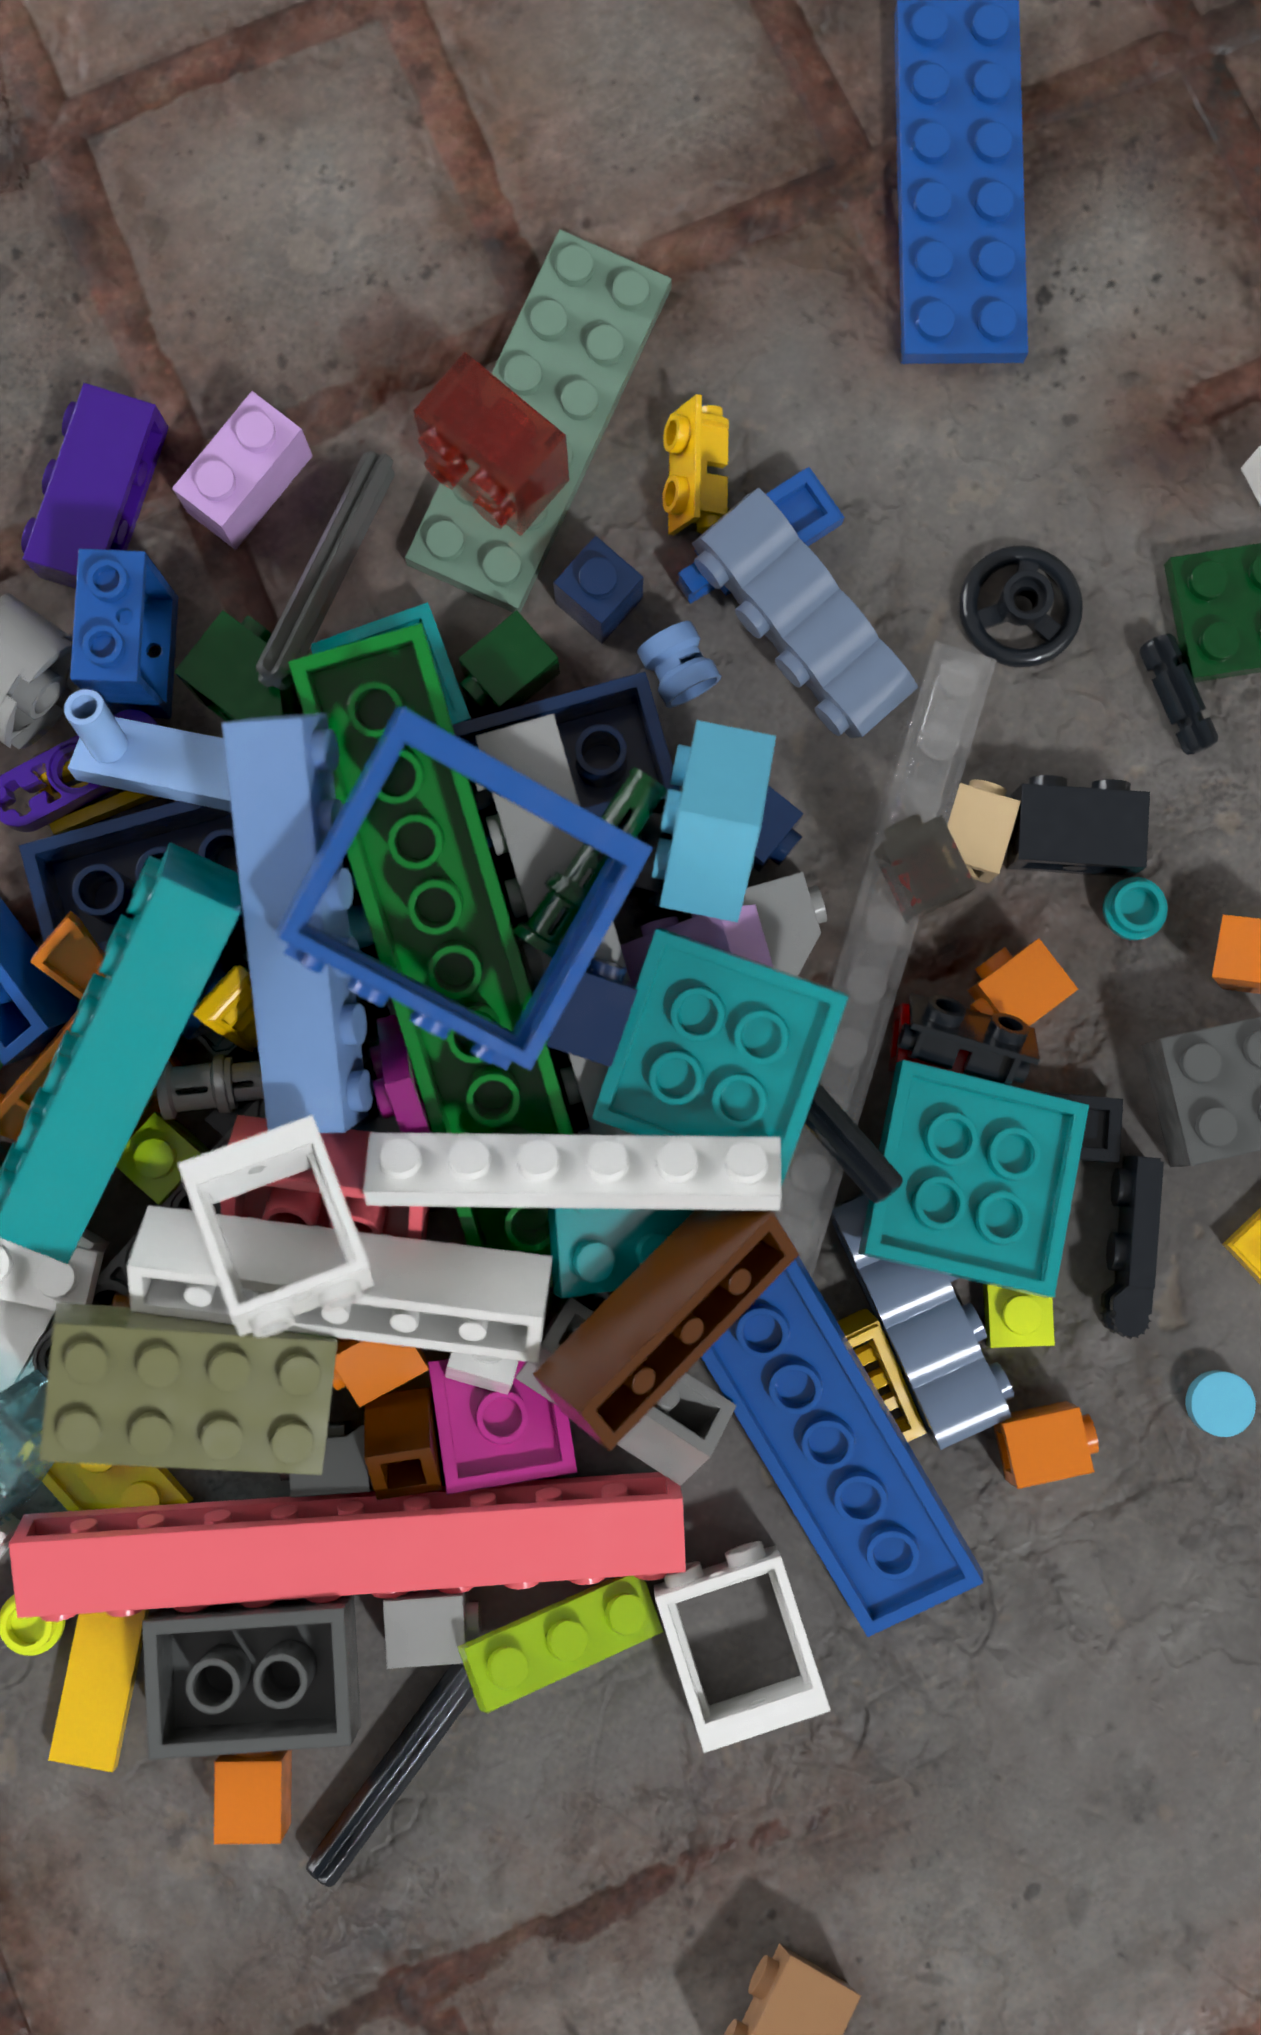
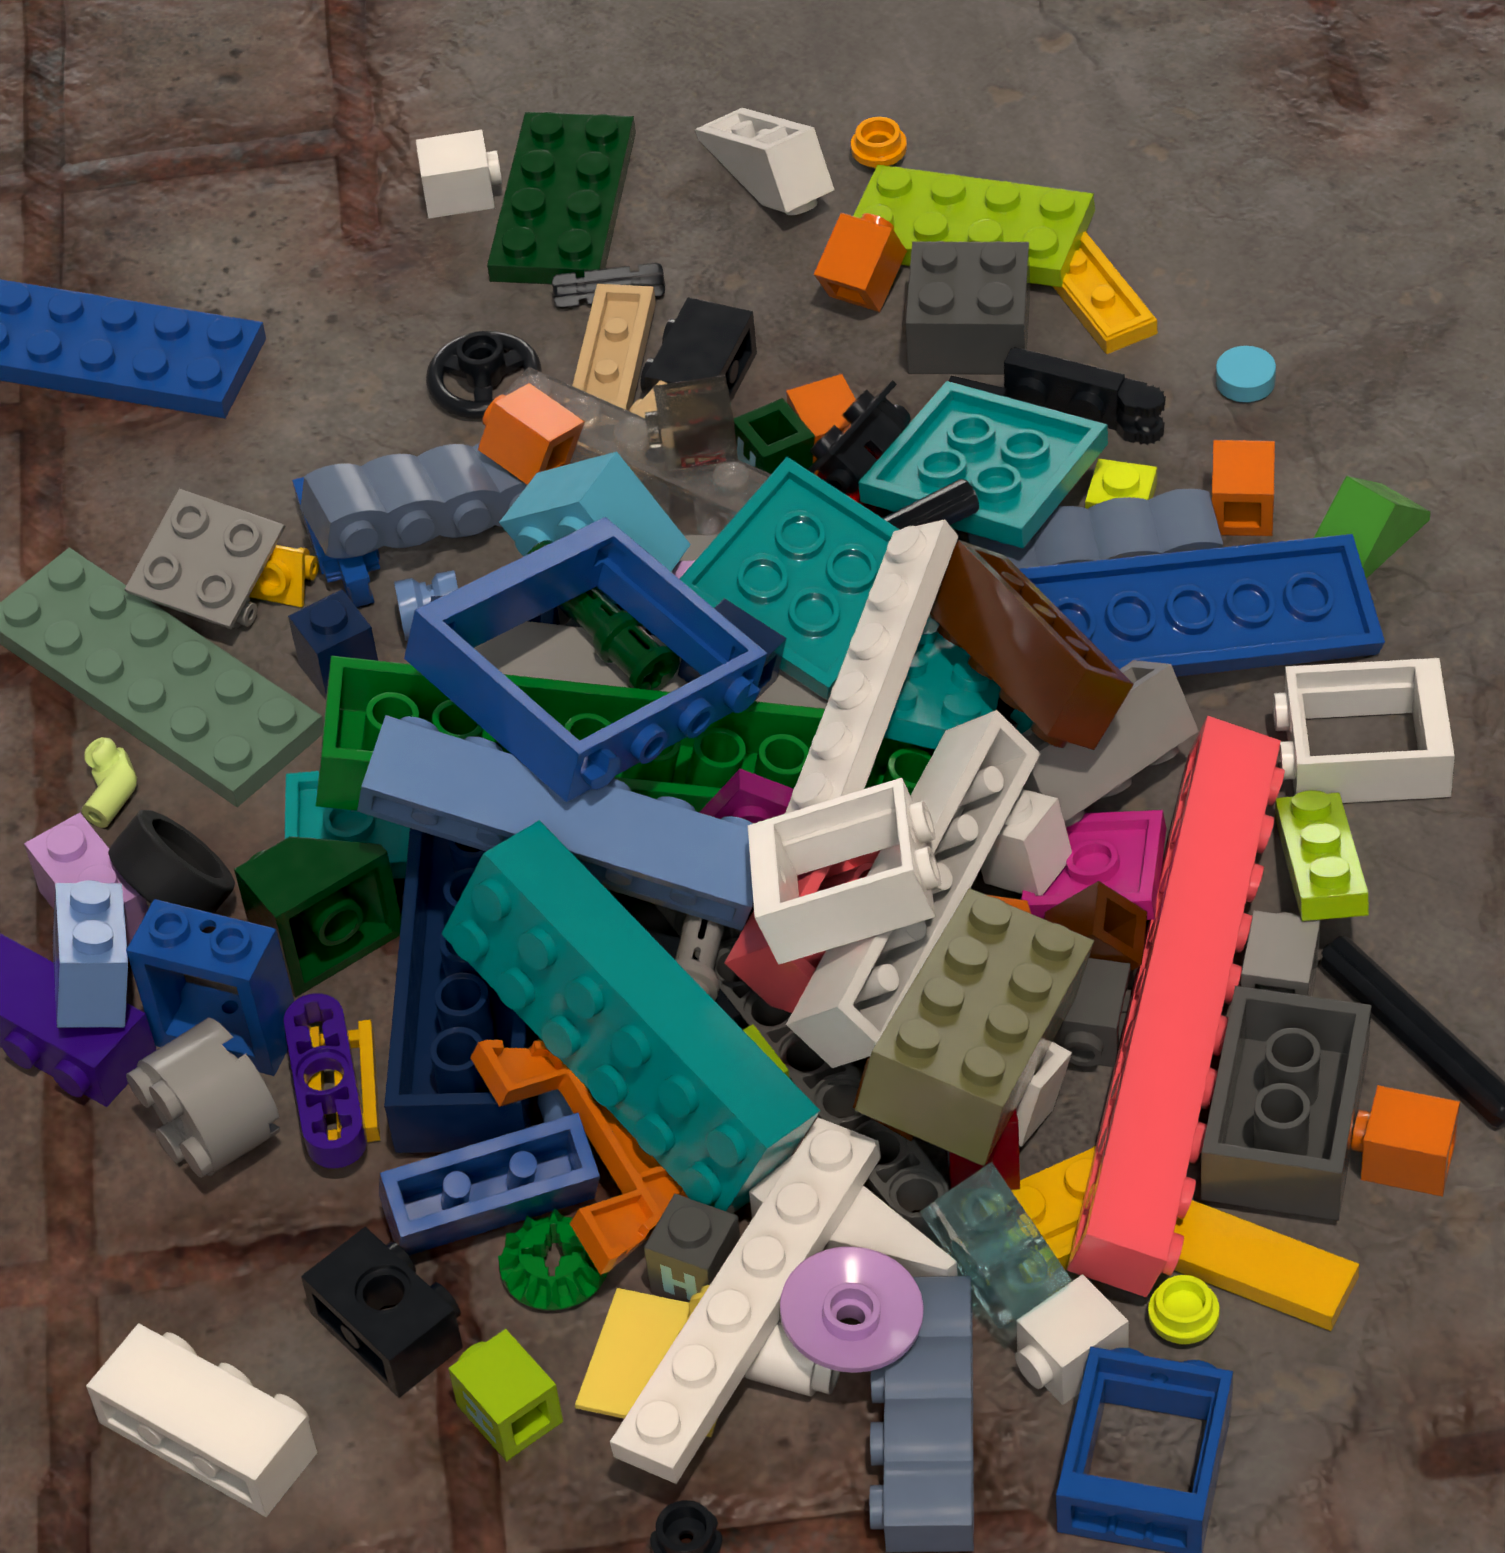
camera: 65 degrees left, 35 degrees down
(113, 506) = (90, 954): none -> medium blue brick
(145, 755) = (352, 973): light blue piece -> none
(231, 526) = (170, 863): none -> black tyre
(325, 570) = (230, 809): dark grey axle -> none
(396, 440) = (114, 779): none -> yellowish green arm
(491, 446) = (174, 656): clear red brick -> none
(666, 423) = (206, 560): none -> light grey hinge
(889, 694) = (529, 432): none -> orange brick
(956, 946) = (771, 435): none -> dark green brick
(1030, 1583) = (1375, 517): none -> bright green slope
(1074, 731) = (615, 342): none -> tan plate
(1135, 908) = (785, 344): teal plate -> none

